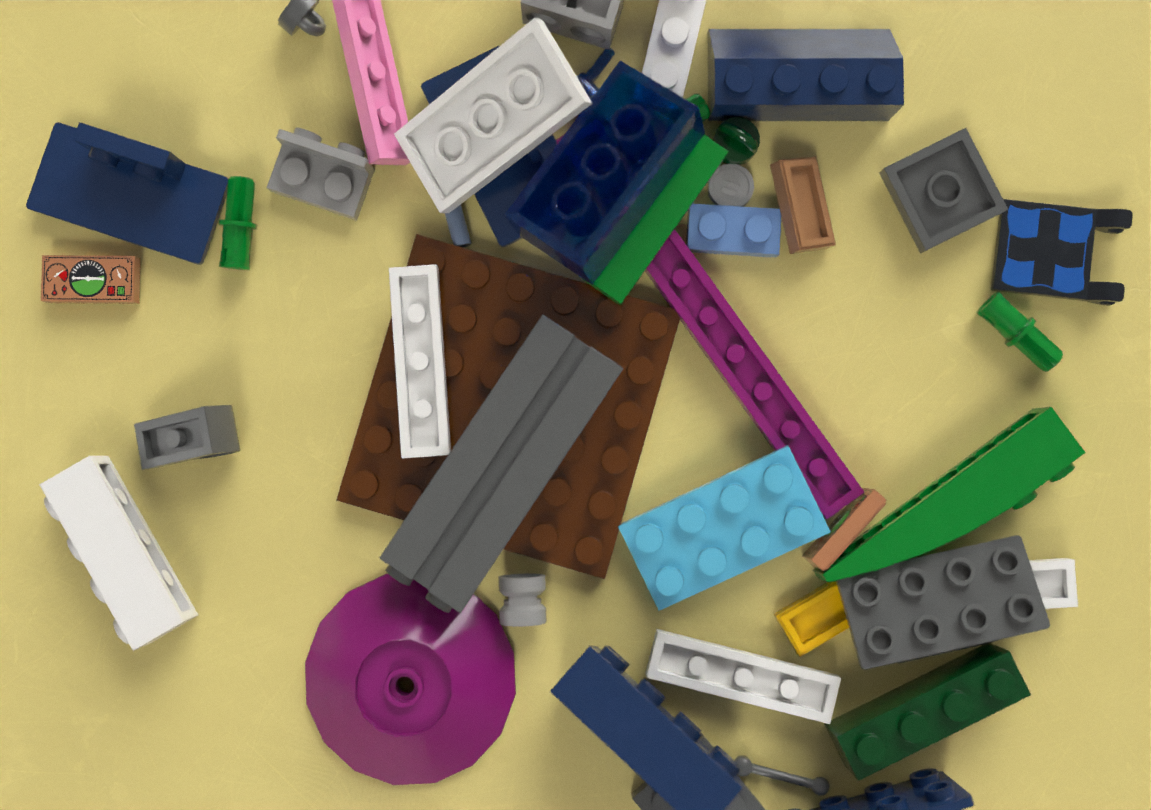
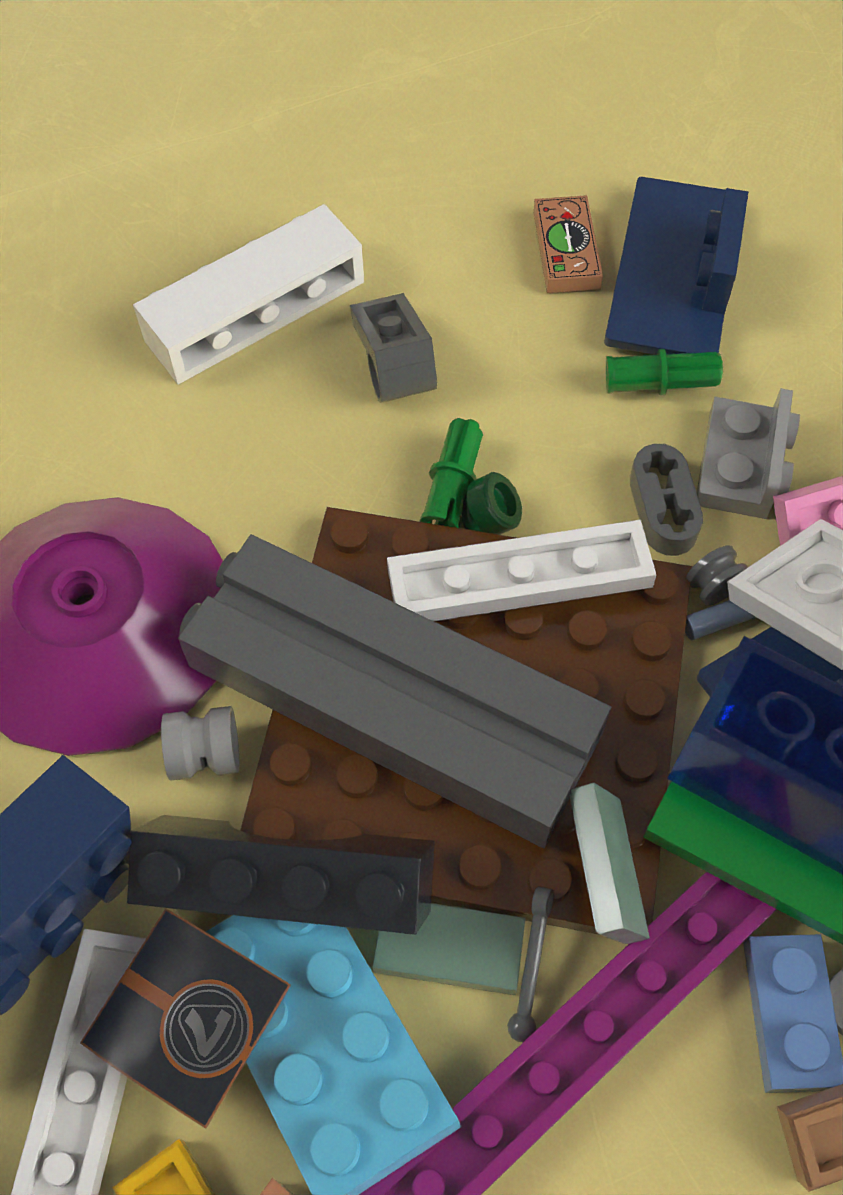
camera: 90 degrees right, 25 degrees down
(317, 401) = (453, 473): none -> green axle
(349, 375) = (491, 505): none -> dark green tile
(353, 231) = (677, 496): none -> dark grey beam
(426, 216) = (713, 573): none -> dark grey bush
(642, 496) = (333, 882): none -> black arch
(644, 332) = (608, 865): none -> sand green tile
(673, 440) = (456, 950): none -> sand green tile
(713, 610) = (185, 1017): none -> black slope
(726, 400) = (522, 1024): none -> dark grey hinge

